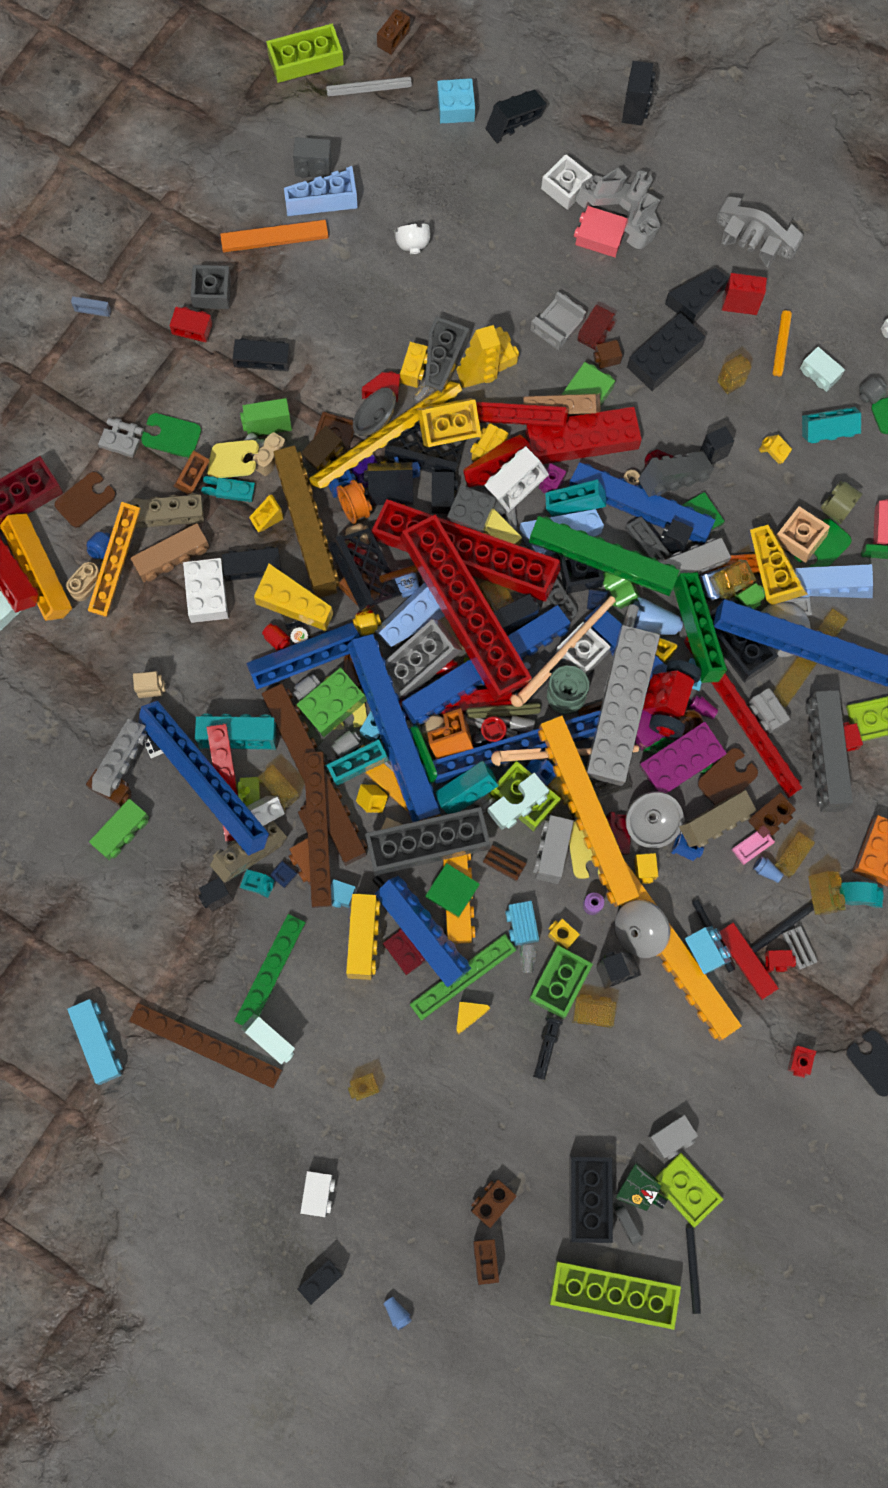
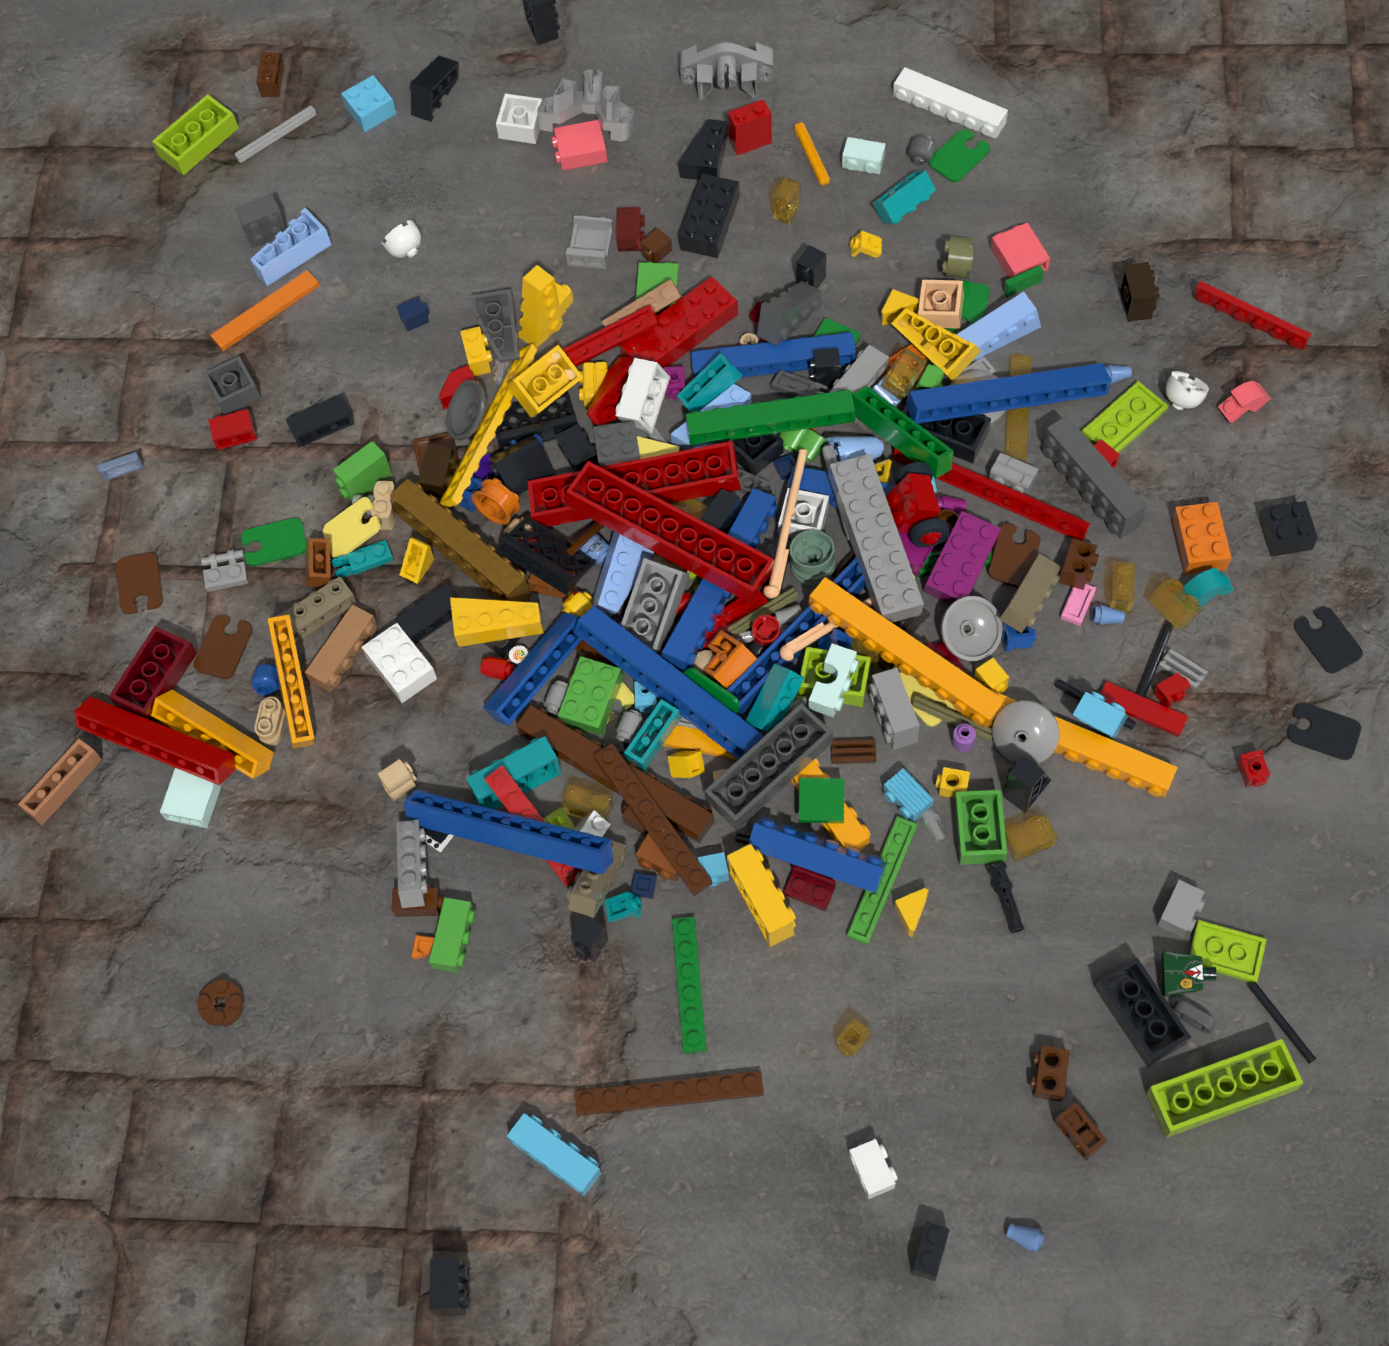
camera: 20 degrees left, 10 degrees down
(53, 405) = (137, 577): none -> reddish brown piece
(94, 824) = (422, 946): none -> orange tile
(268, 1039) = (730, 1044): light aqua brick -> none
(385, 304) = (413, 313): none -> dark blue brick
(594, 879) = (950, 716): none -> olive axle
(767, 515) = (896, 304): none -> yellow slope

